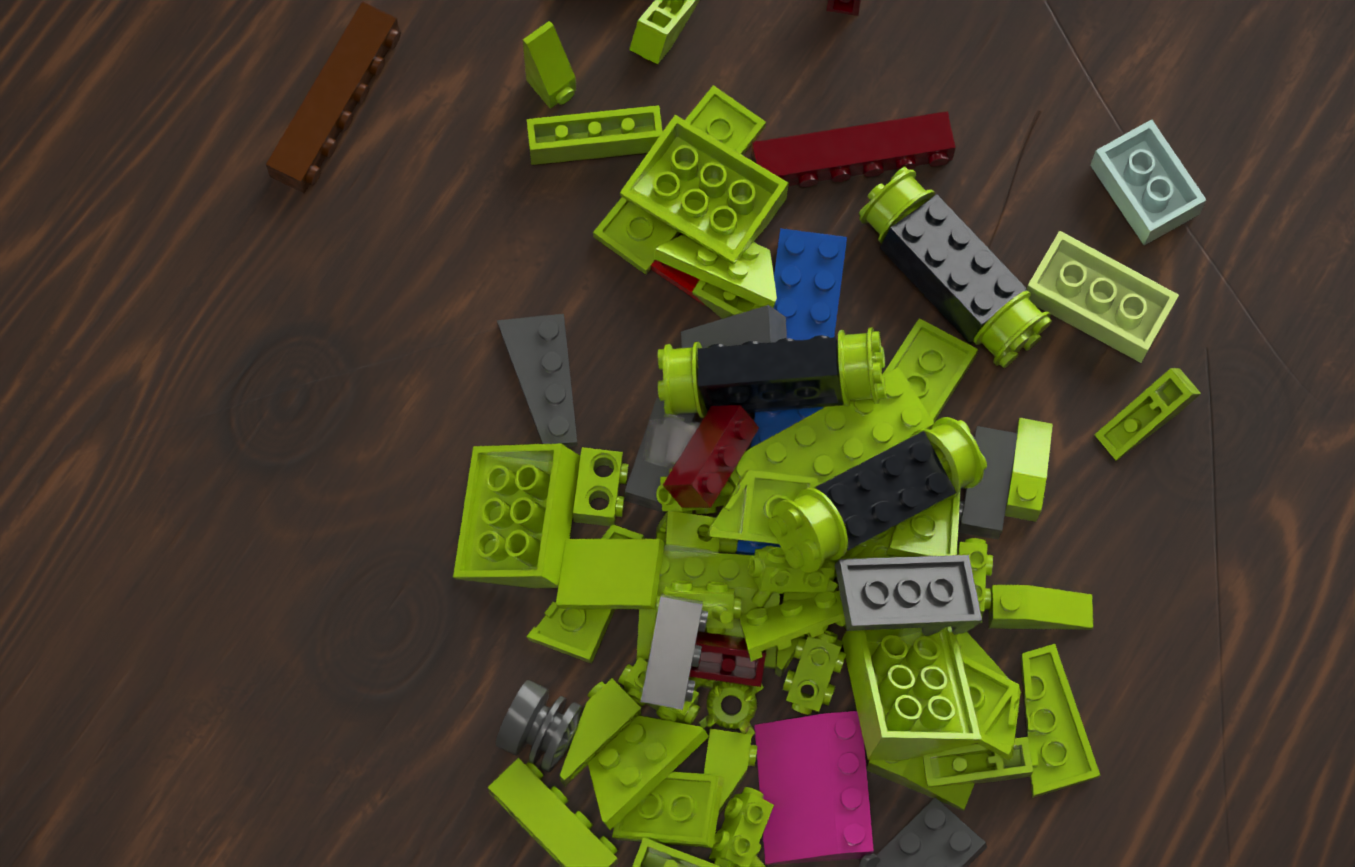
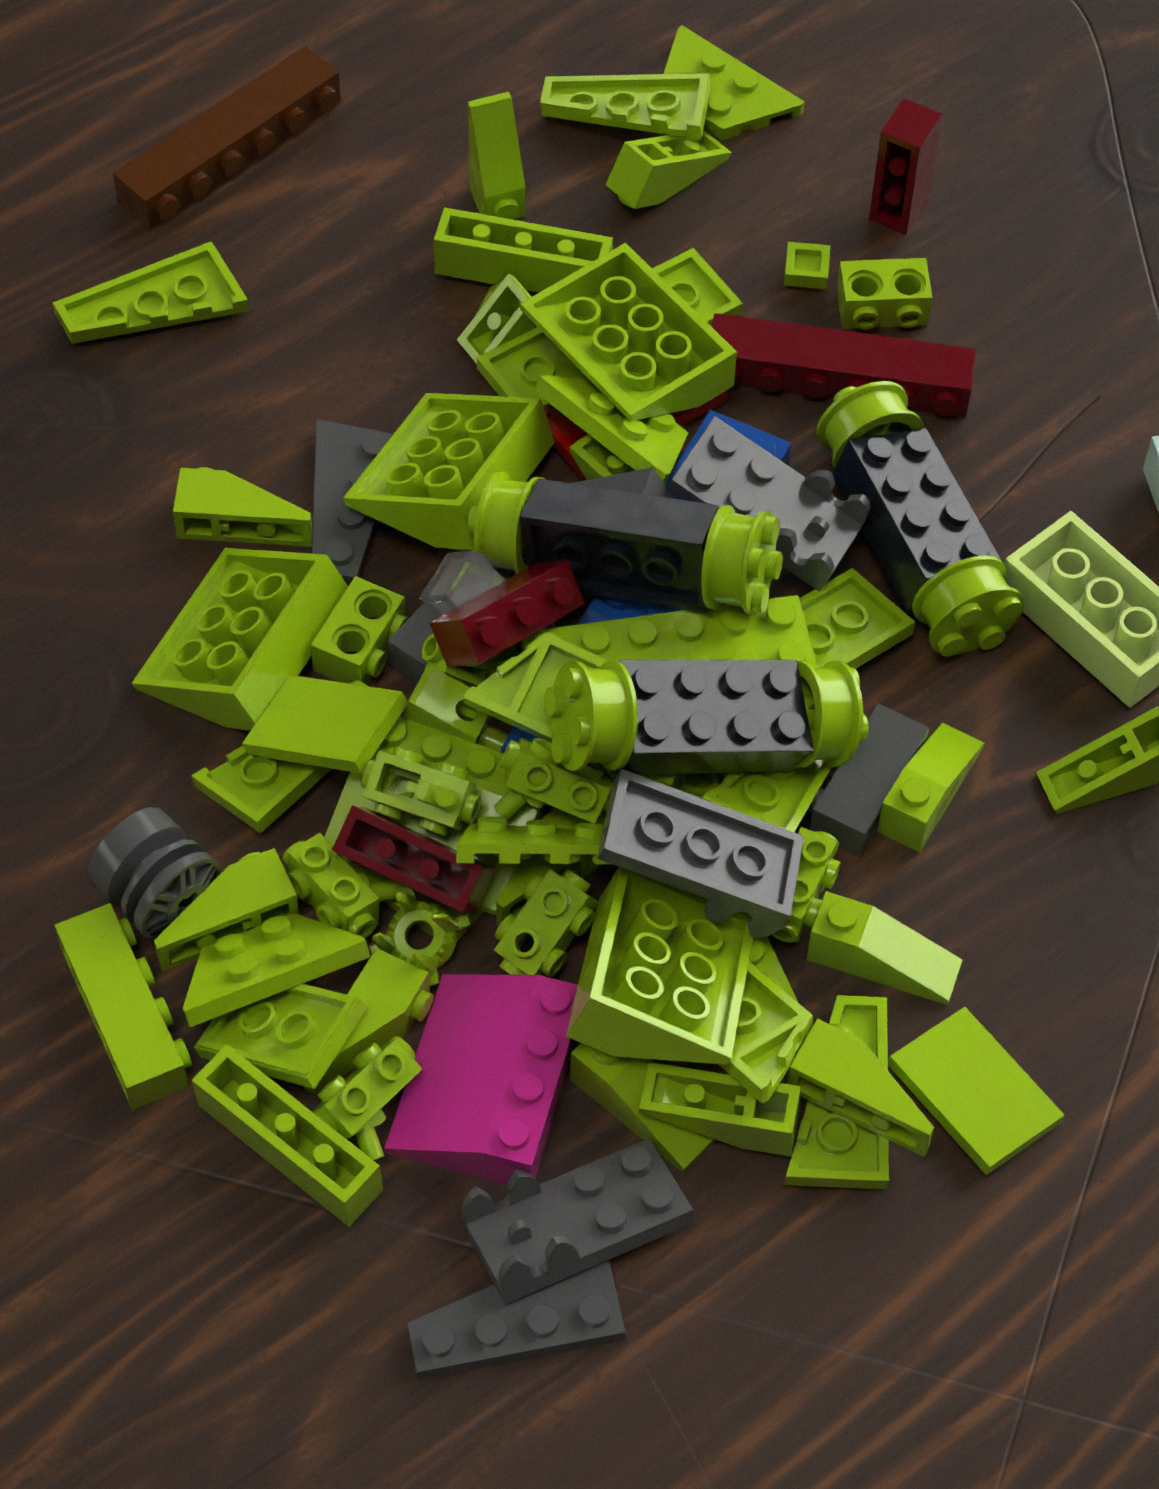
camera: 20 degrees right, 15 degrees down
(340, 252) = (163, 294): none -> lime wing
(464, 417) = (230, 509): none -> lime slope
(594, 193) = (497, 318): none -> lime slope
(612, 332) = (441, 460): none -> lime slope
(674, 652) = (358, 819): brick -> none
(799, 71) = (807, 265): none -> lime plate
(850, 295) = (740, 473): none -> hinge
(859, 72) = (884, 293): none -> lime brick
(1055, 717) = (852, 1082): none -> lime slope
(1132, 688) = (975, 1090): none -> lime tile

